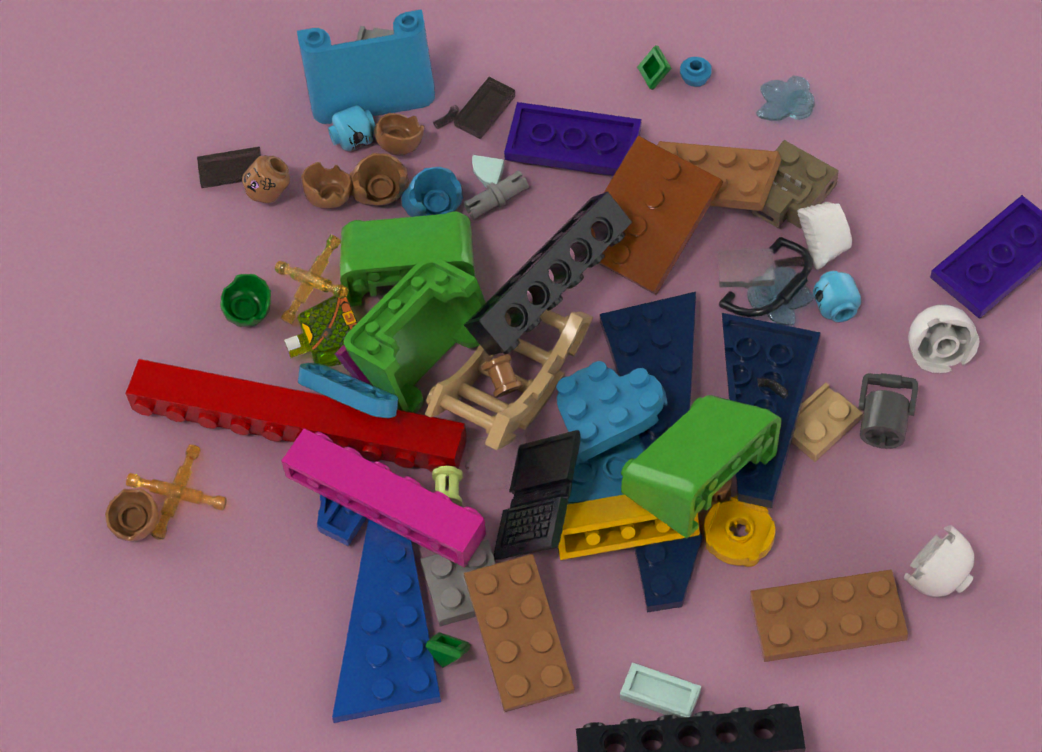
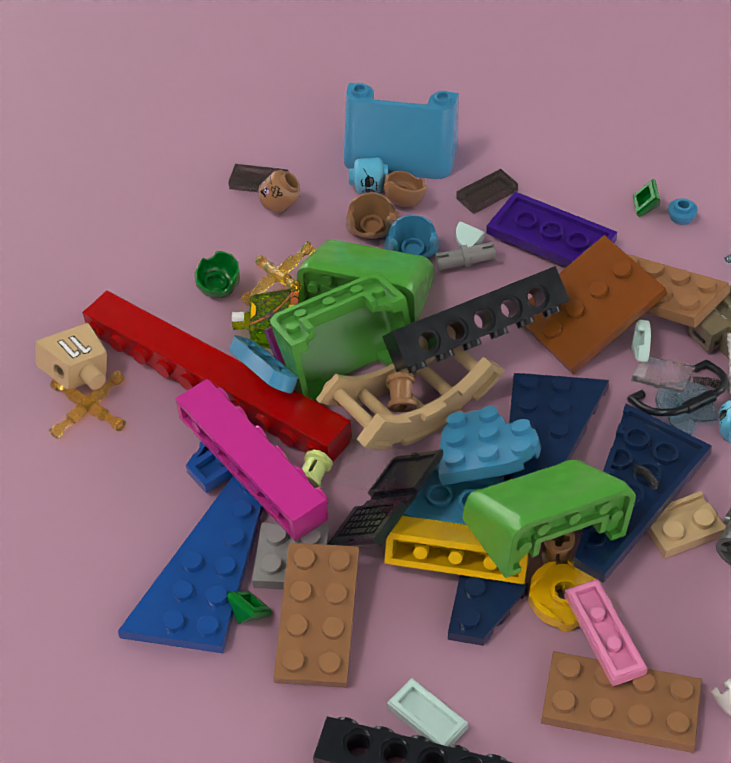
camera: 20 degrees right, 10 degrees down
(132, 514) = (39, 408): medium nougat hair -> none
(141, 447) = (73, 357): none -> tan torso
(325, 186) = (324, 210): medium nougat hair -> none
(446, 118) = (447, 193): clear smoke leg -> none
(712, 239) = (641, 340): none -> light aqua tile
(792, 556) = (605, 632): none -> bright pink tile

